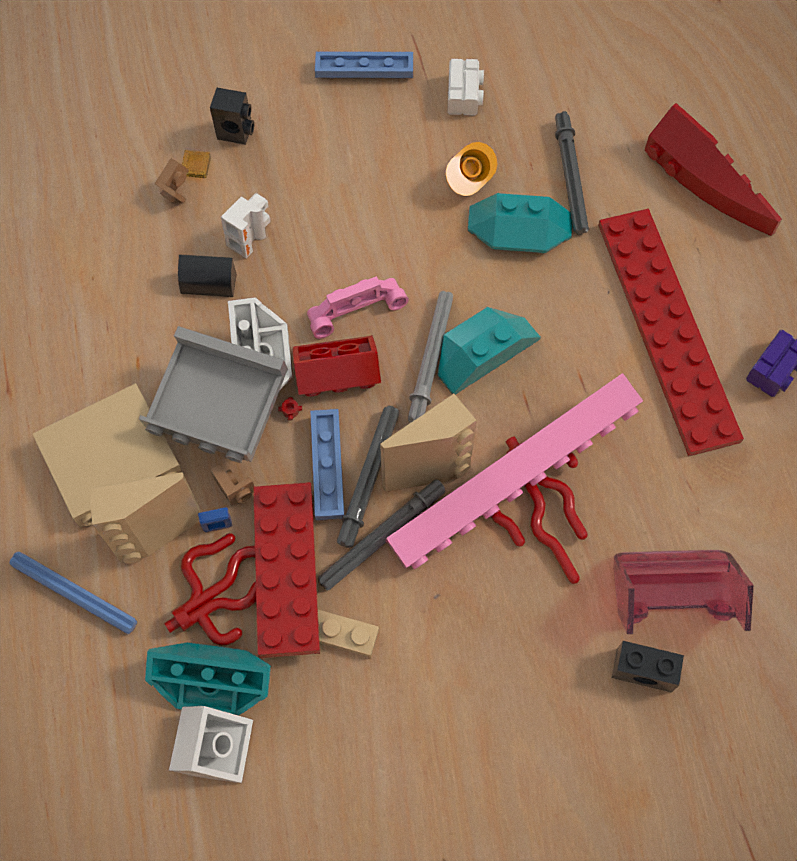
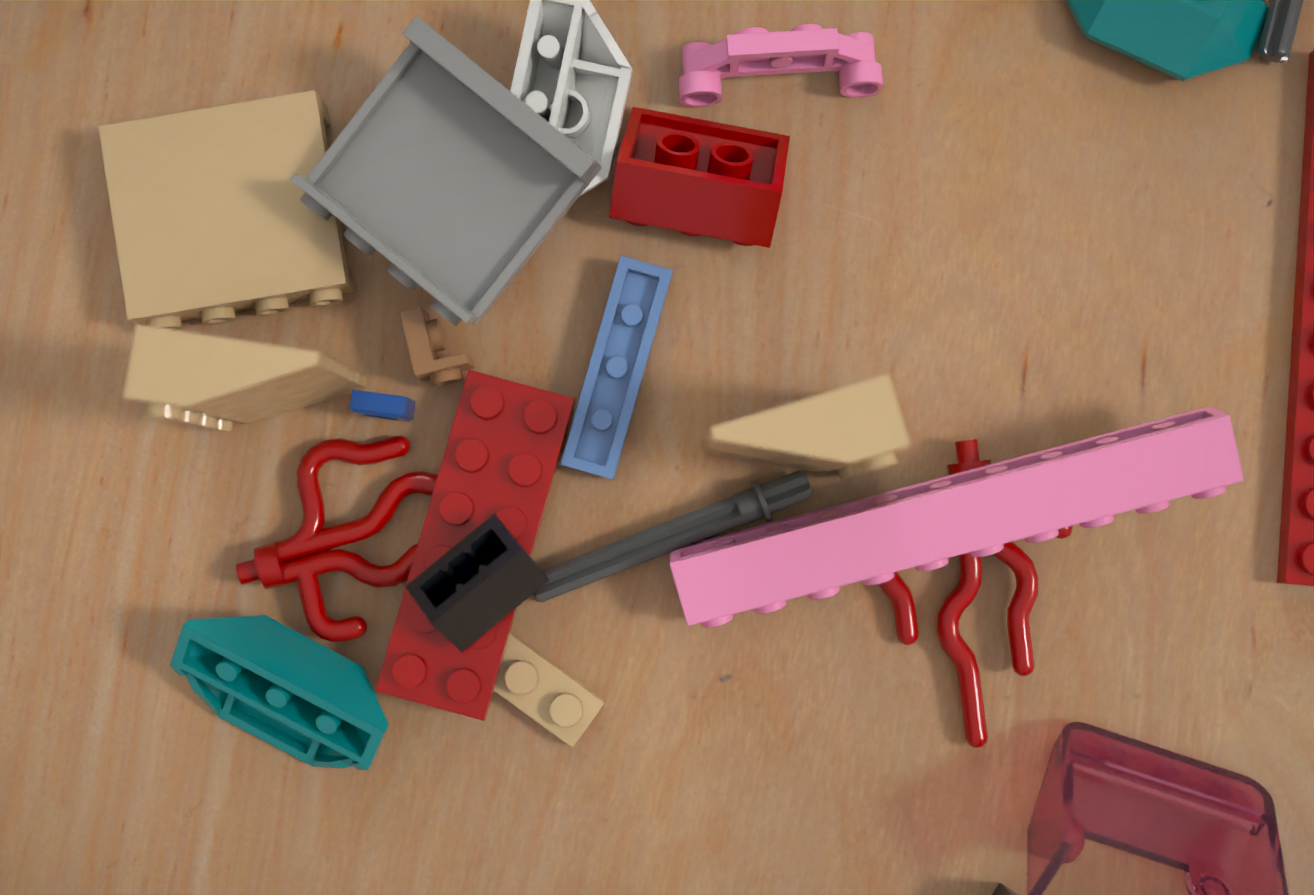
camera: 20 degrees right, 20 degrees up
(73, 592) = (98, 447): medium blue axle -> none
(211, 744) = (252, 806): white slope -> none
(290, 408) = (587, 232): red piece -> none
(293, 577) = (477, 583): none -> black brick
(353, 519) = (683, 417): dark grey axle -> none
(422, 390) = (843, 282): light grey axle -> none
(482, 346) = (987, 233): teal wedge -> none

